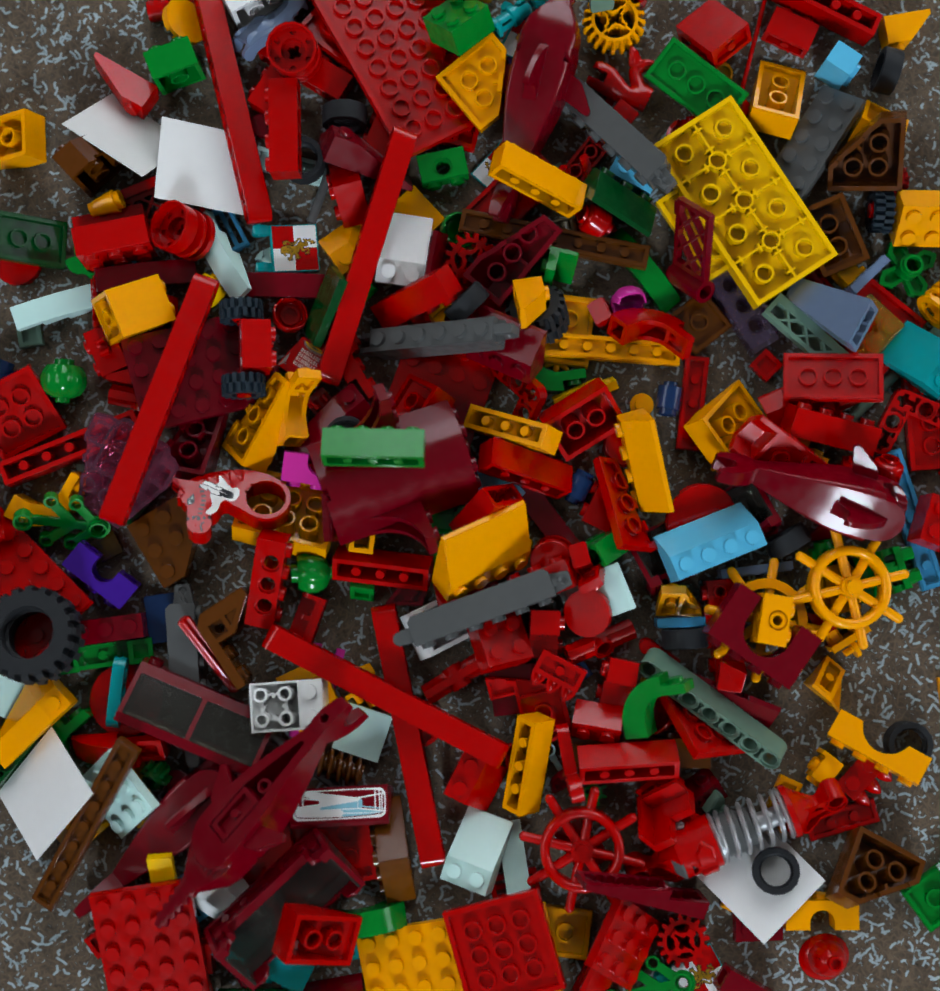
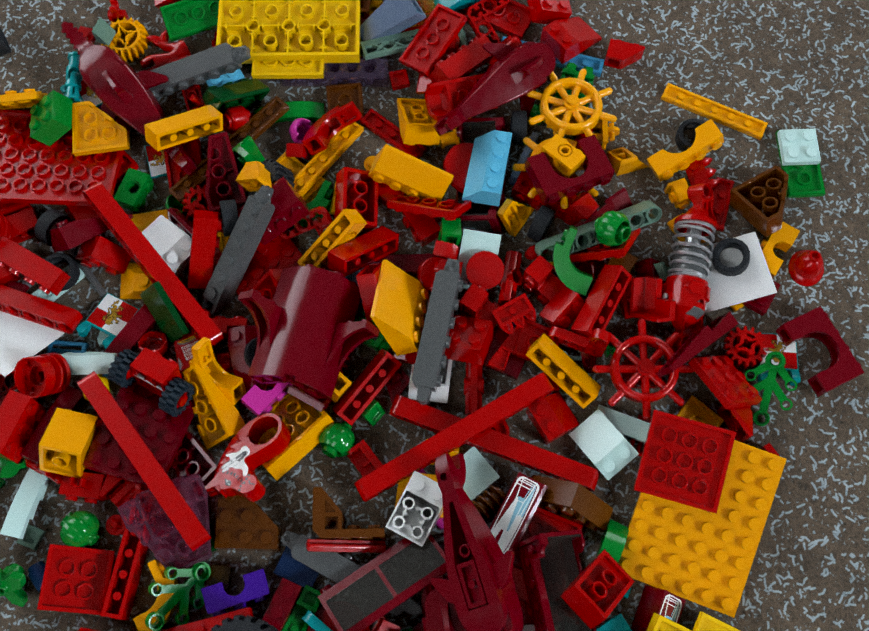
camera: 55 degrees left, 15 degrees down
(90, 407) = (115, 525): none -> red tile
(268, 544) = (296, 448): red brick -> none
(373, 447) = (279, 323): green brick -> none
(581, 487) = (399, 227): dark blue brick -> none
(591, 579) = (464, 250): red plate -> none
(668, 399) = (377, 142): dark blue brick -> none
(677, 622) = (522, 233): dark azure tile -> none
(687, 275) = (309, 88): dark red piece -> none
(716, 727) = (612, 228): none -> green plant

